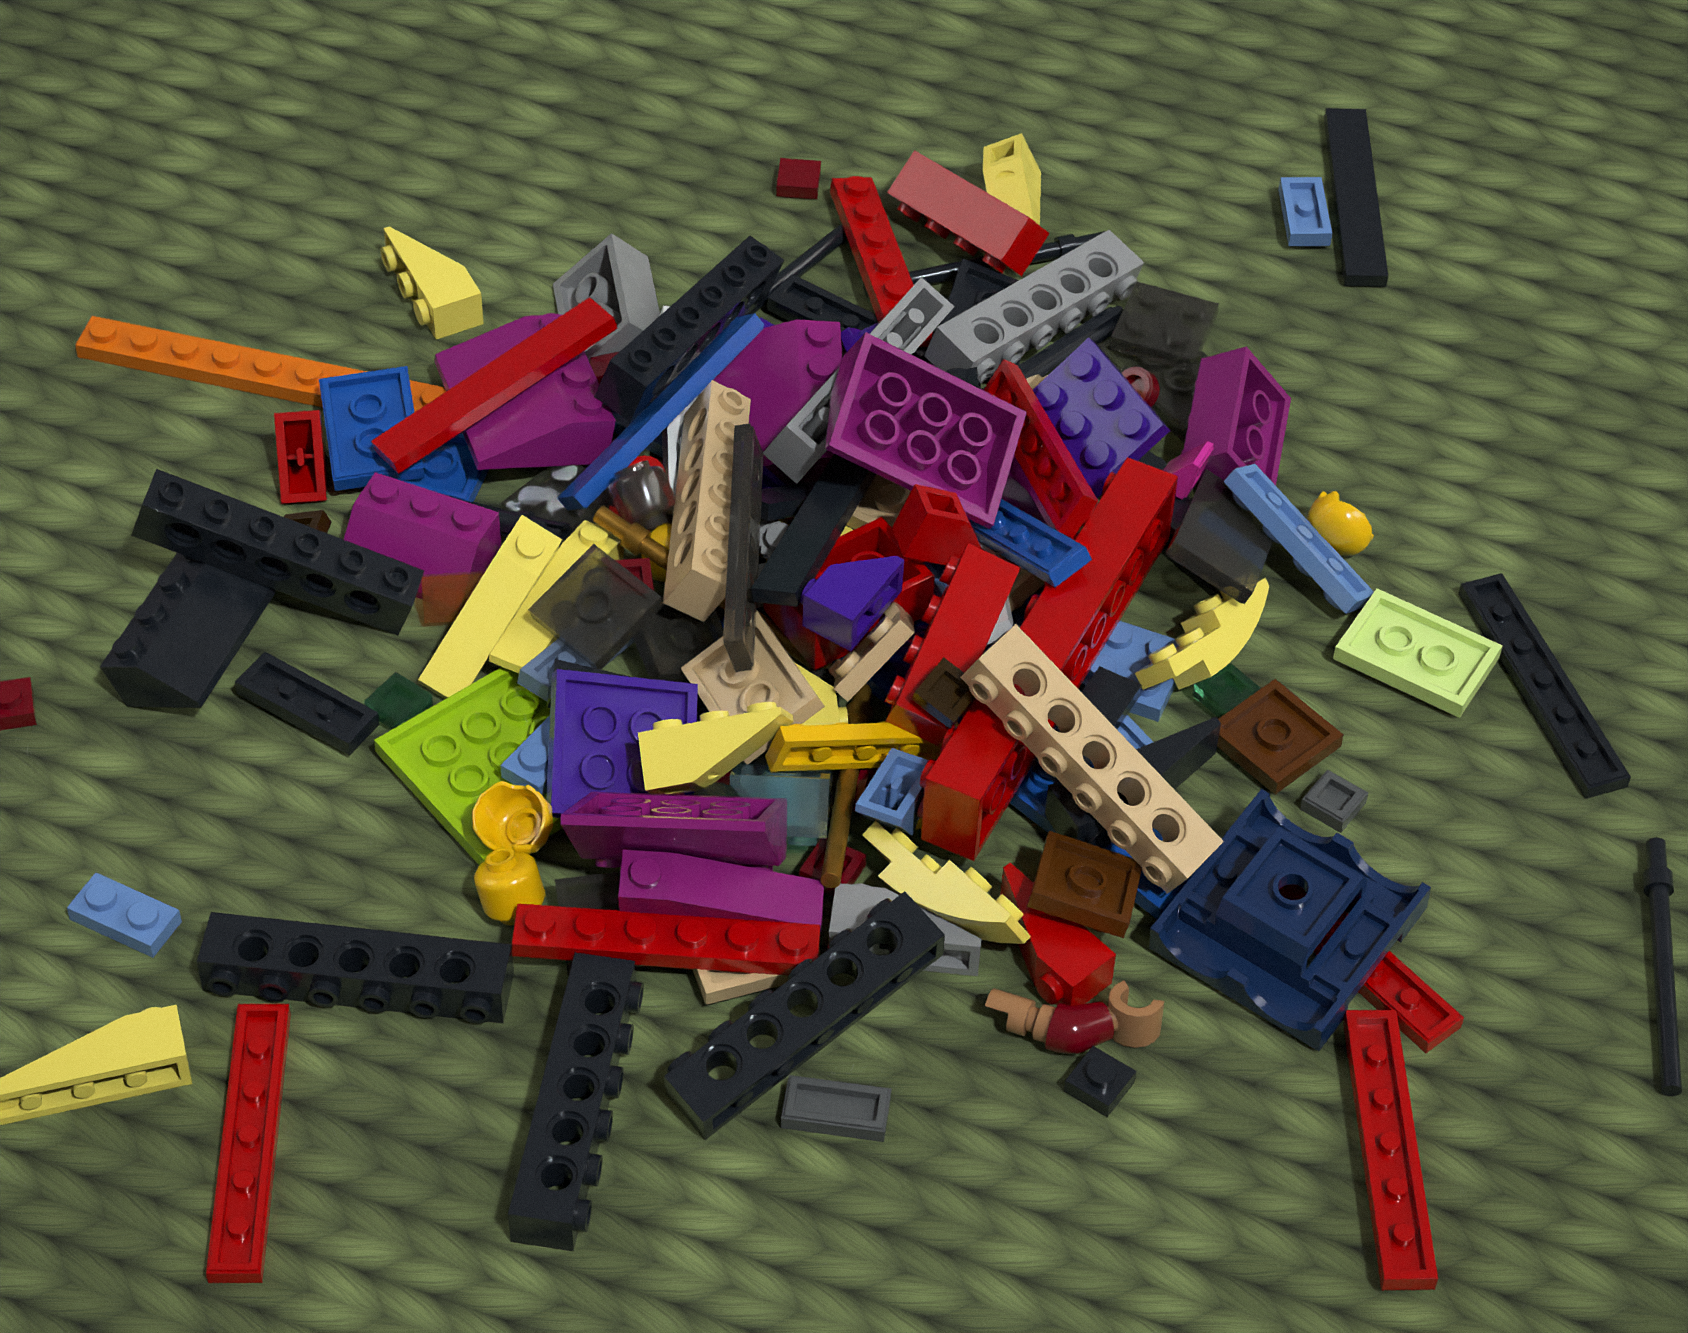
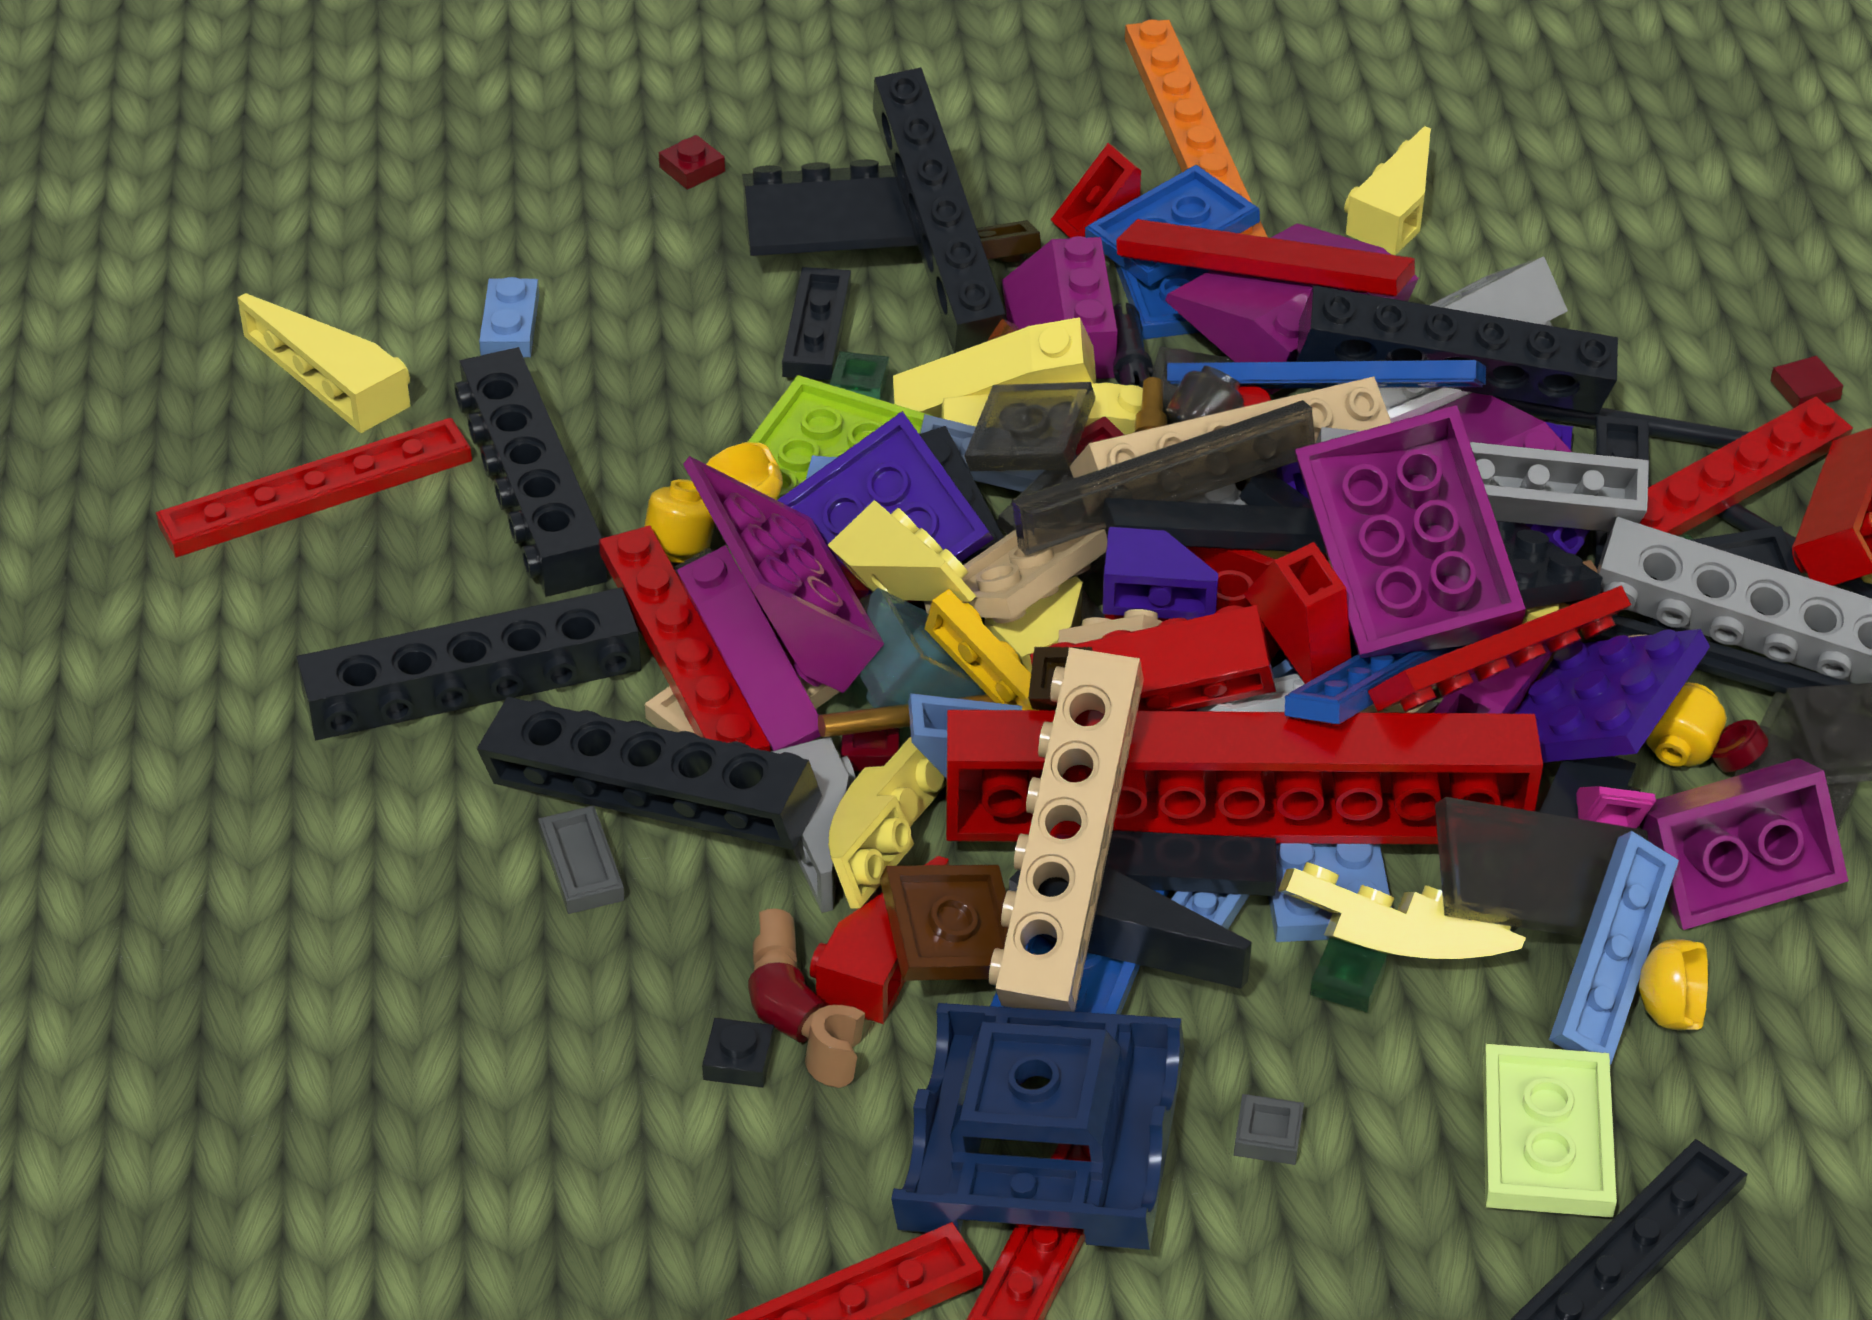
camera: 65 degrees right, 5 degrees down
(1276, 736) = (1315, 1038): reddish brown plate -> none

